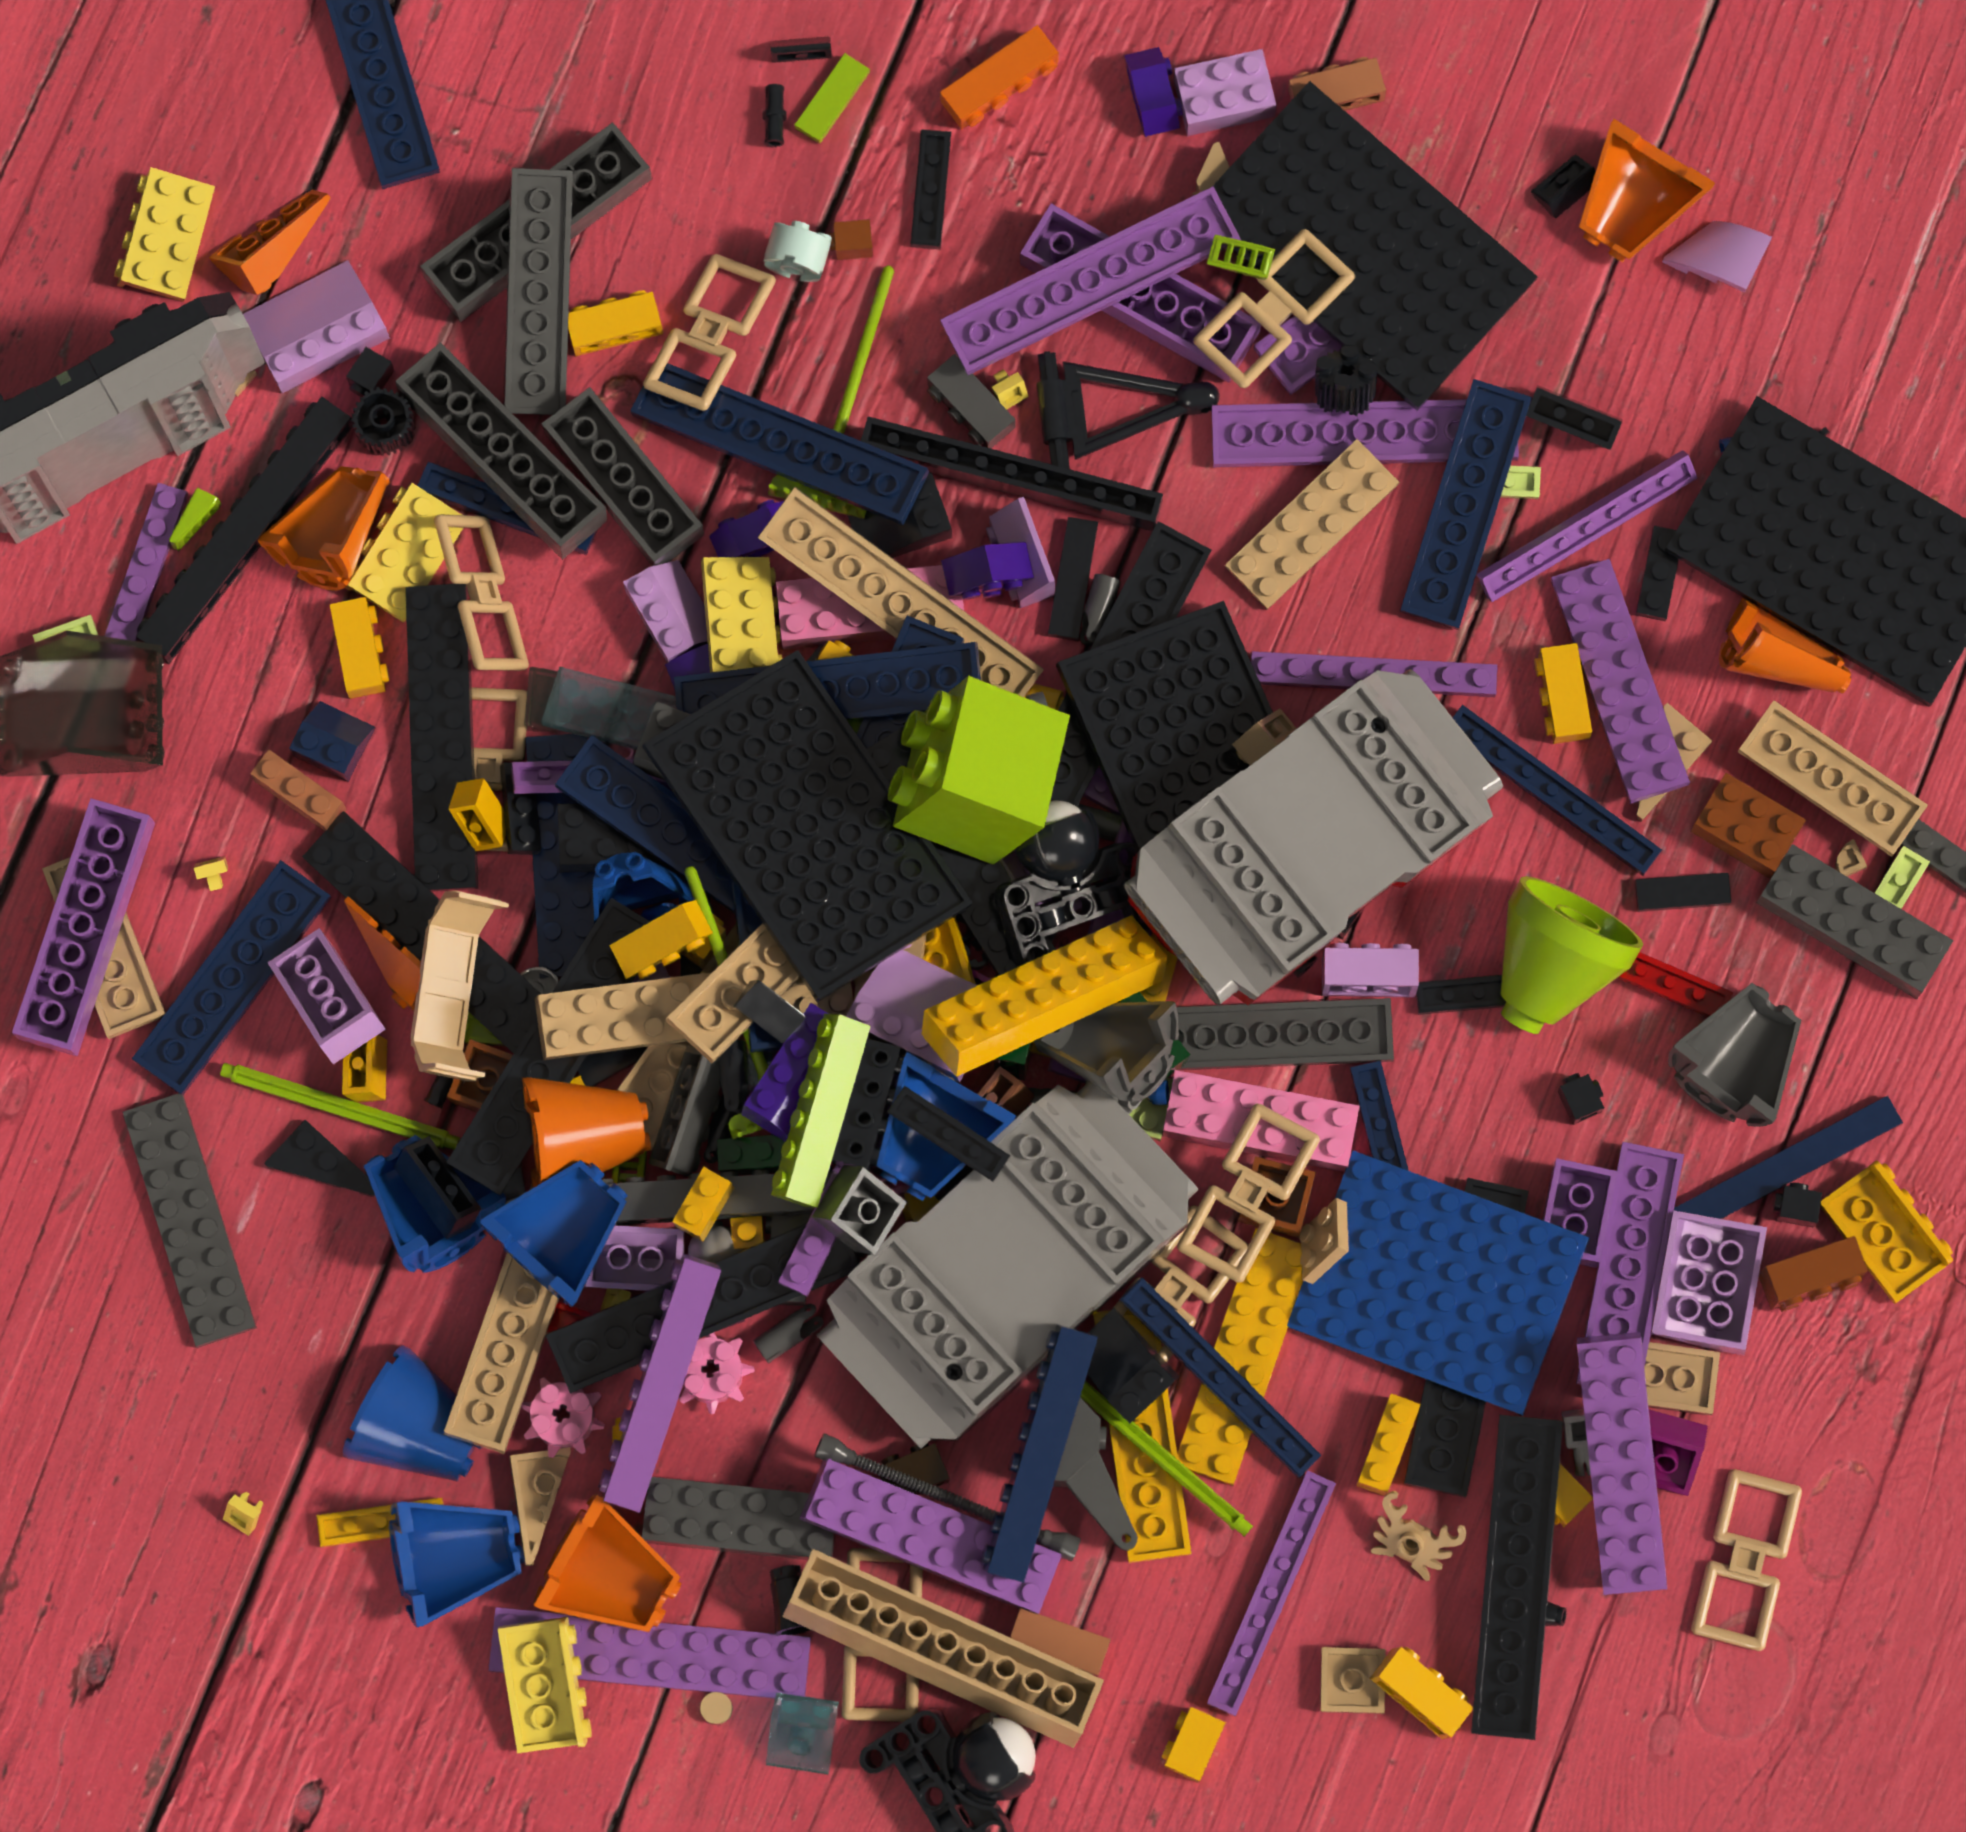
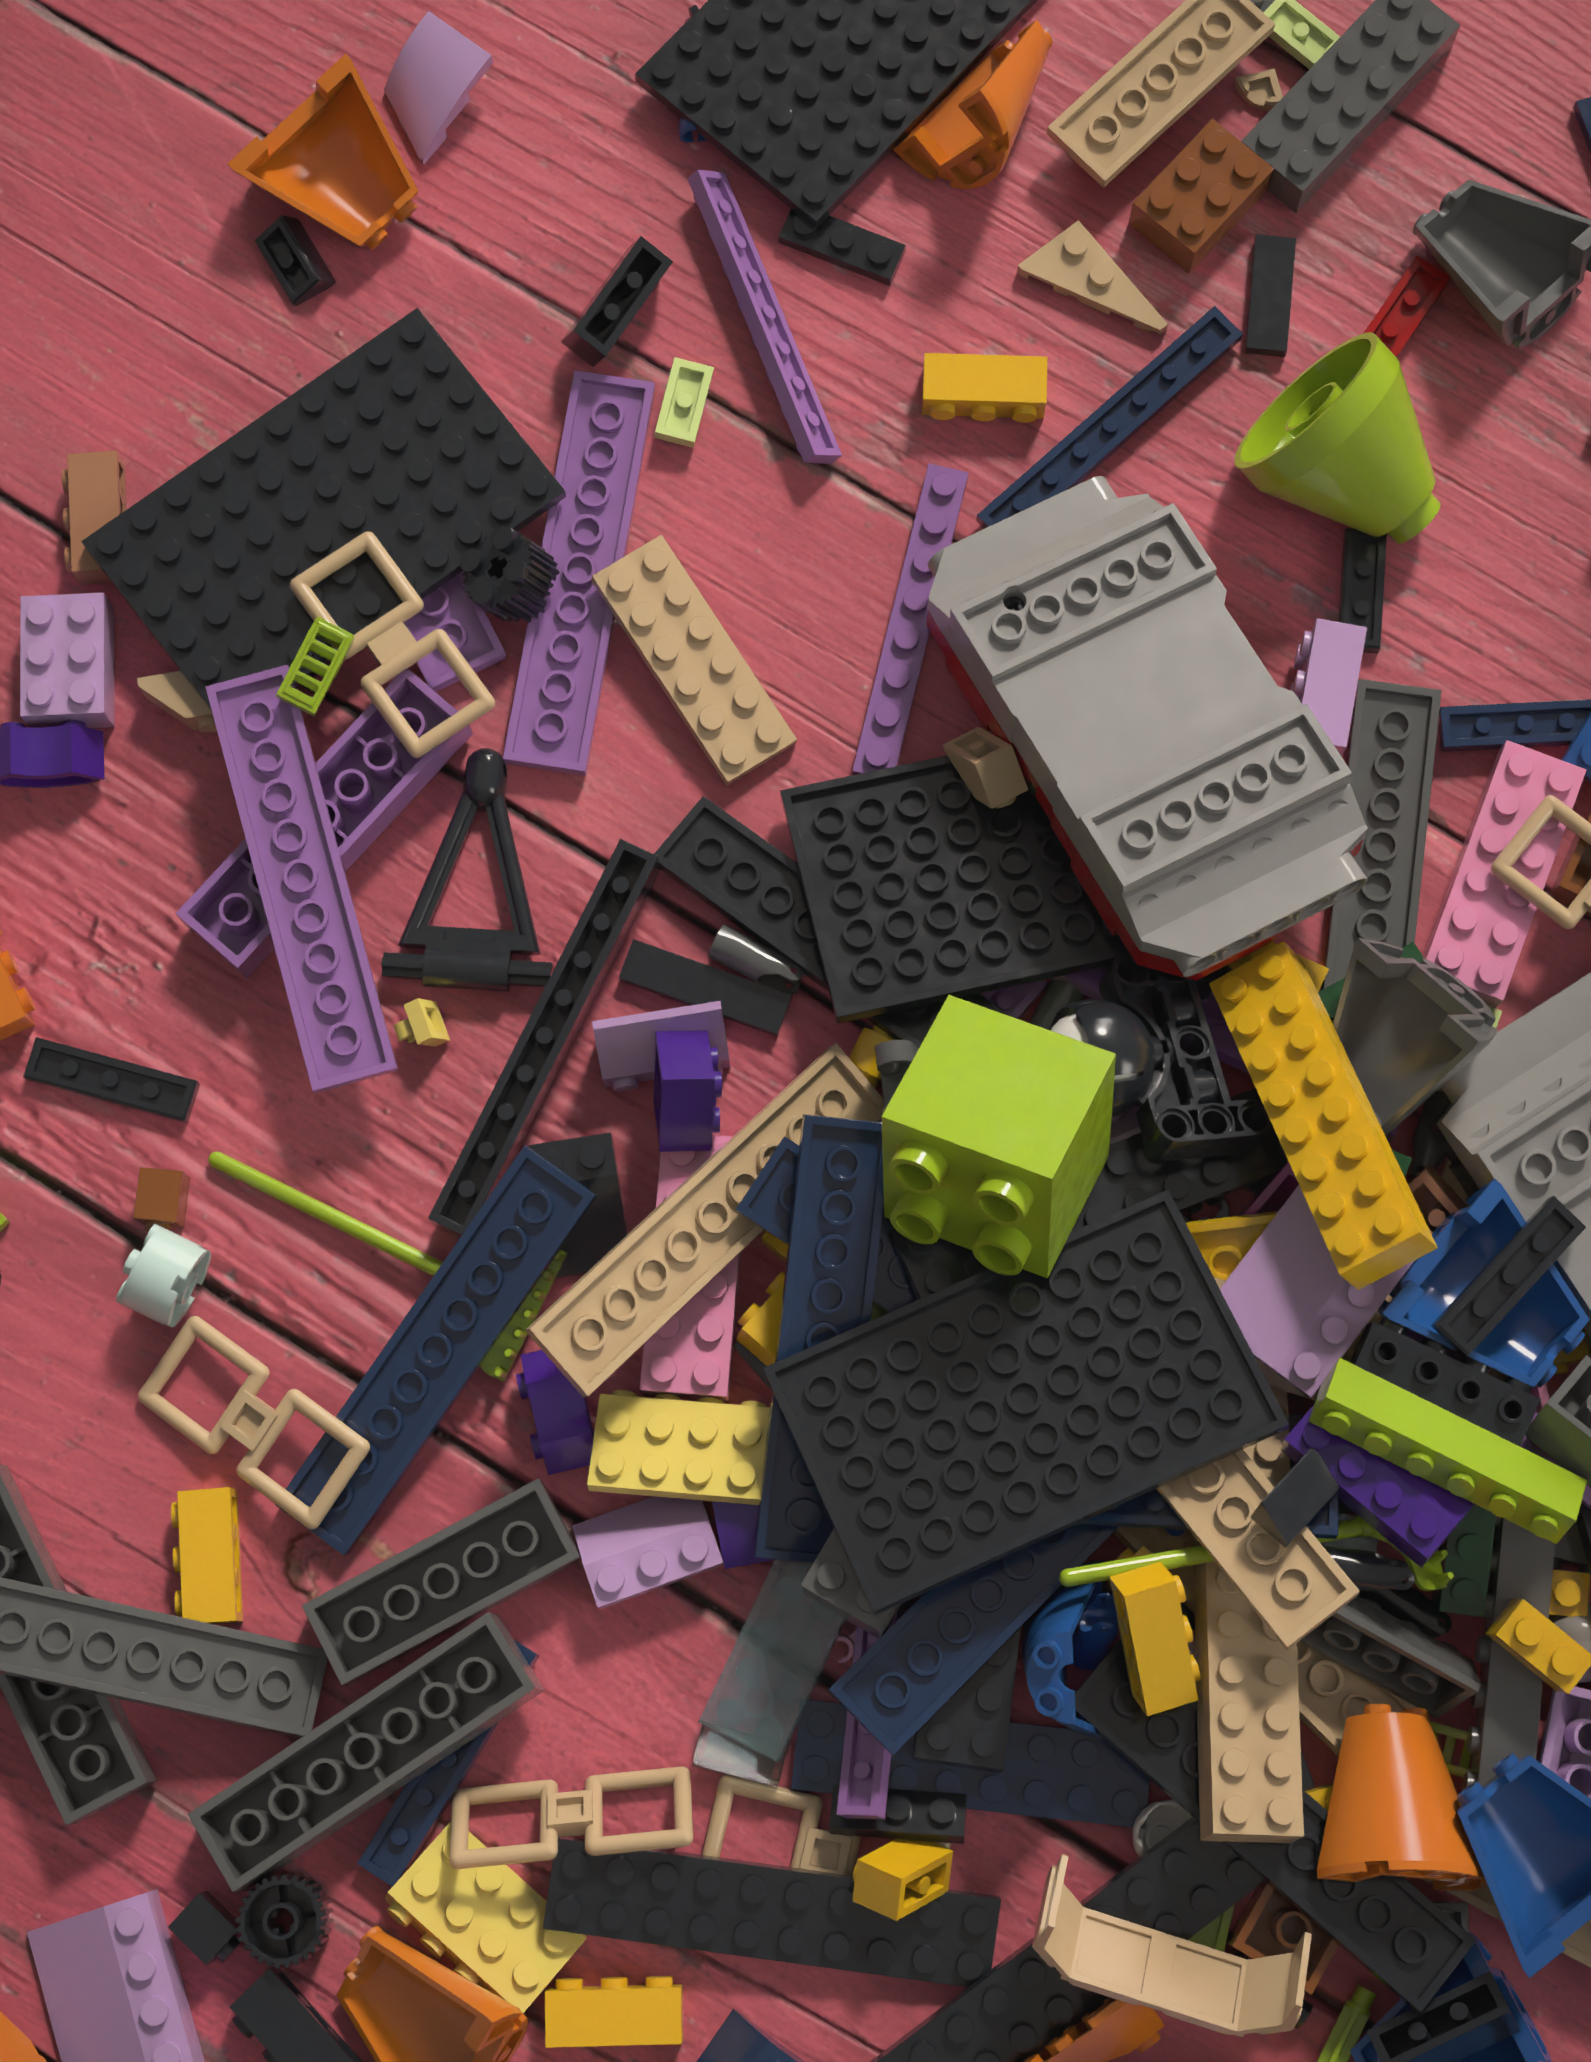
camera: 80 degrees left, 0 degrees up
(970, 403) = (432, 1079): dark grey brick -> none
(1465, 504) = (707, 457): dark blue plate -> none
(1581, 1097) = (1526, 467): black brick -> none
(1620, 681) = (981, 314): medium lavender plate -> none

